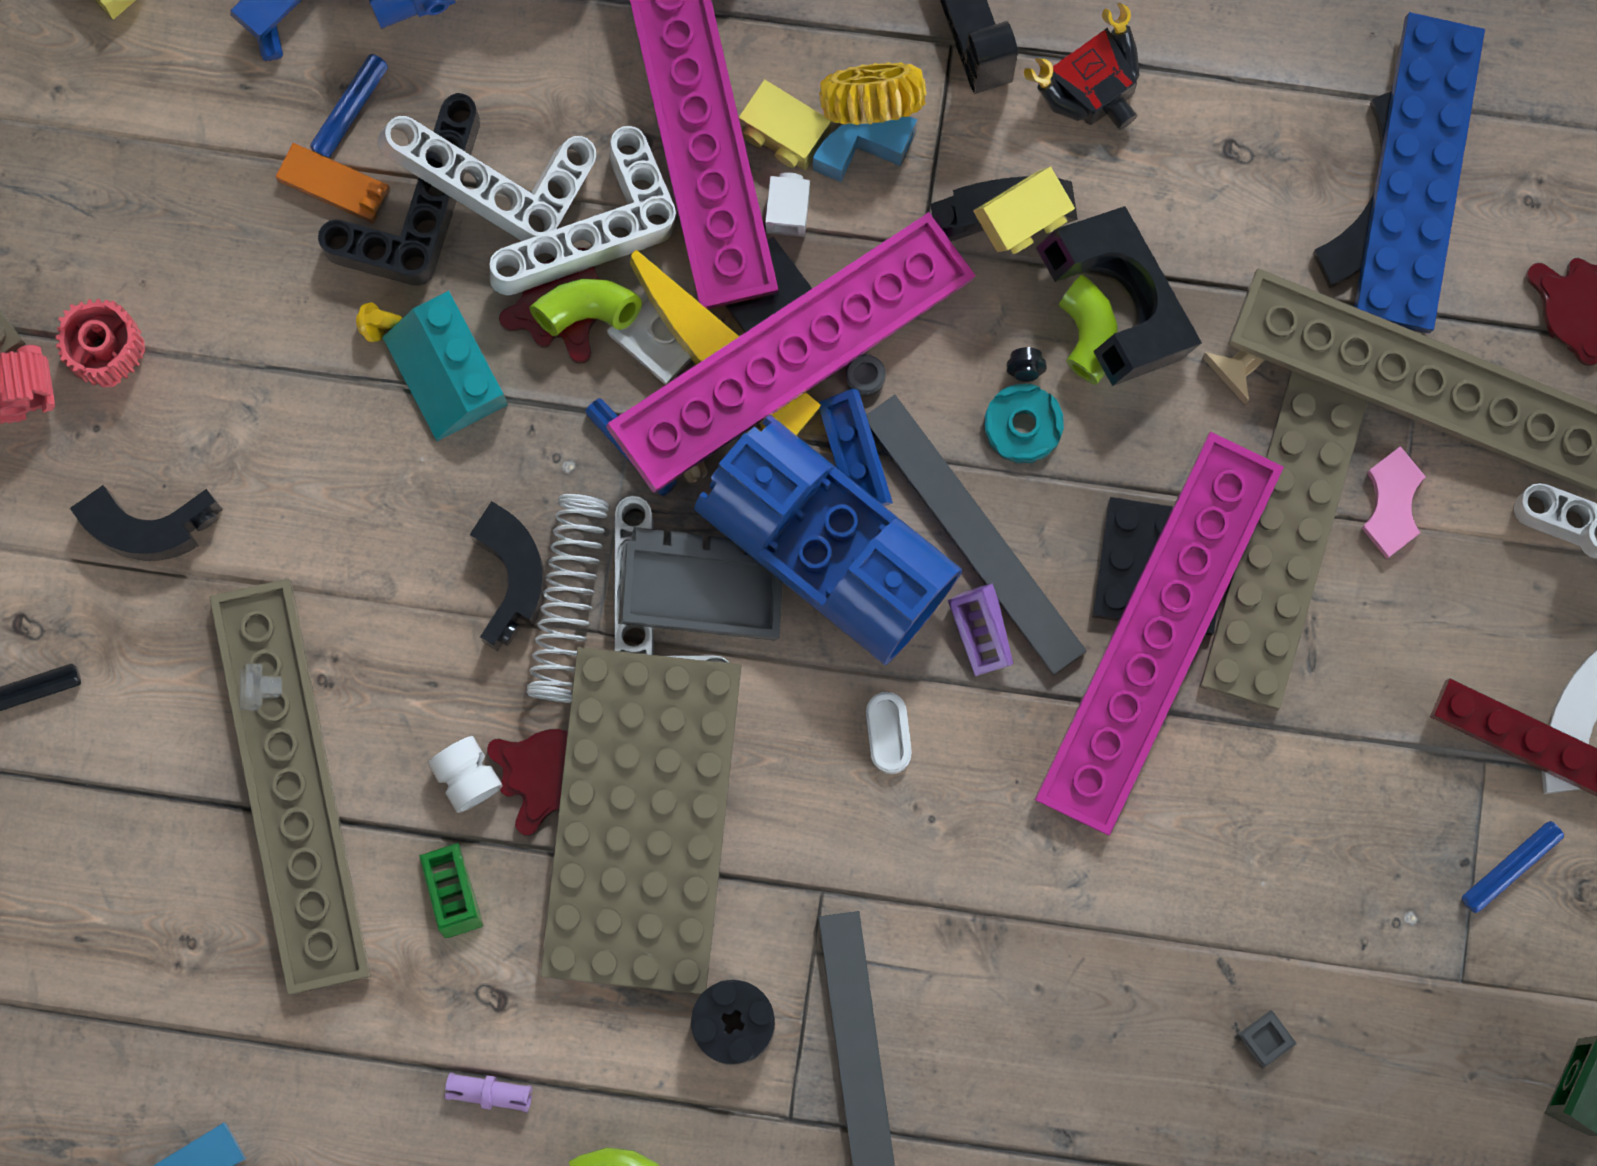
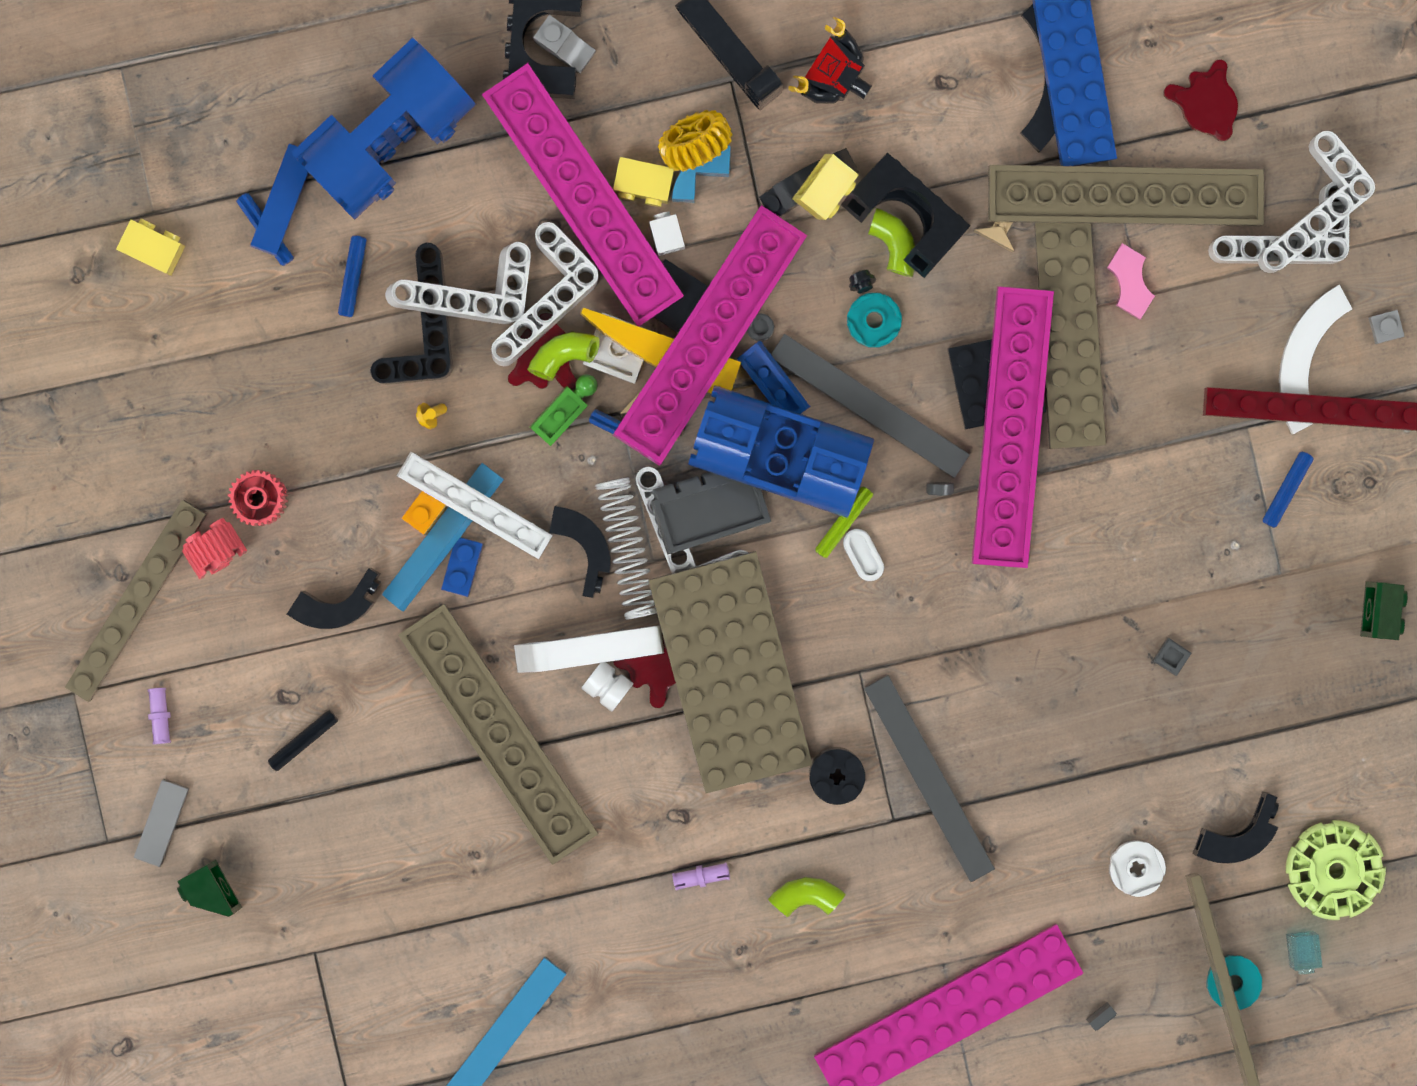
camera: 20 degrees left, 10 degrees up
(255, 687) = (453, 683): clear tile -> none
(324, 489) = (437, 544): none -> dark azure tile
(326, 438) = (424, 513): none -> light orange brick
(332, 183) = (362, 332): orange hinge -> none
(335, 540) = (462, 567): none -> blue plate
(383, 458) = (474, 505): none -> white tile
(394, 693) = (588, 649): none -> white beam
(444, 366) = (486, 427): teal slope -> none
(460, 923) = (619, 766): green slope -> none
(558, 382) = (564, 409): none -> bright green plate
(878, 678) = (842, 524): none -> lime axle
(994, 625) = (897, 452): medium lavender slope -> none
(1028, 681) = (940, 488): none -> dark grey tile

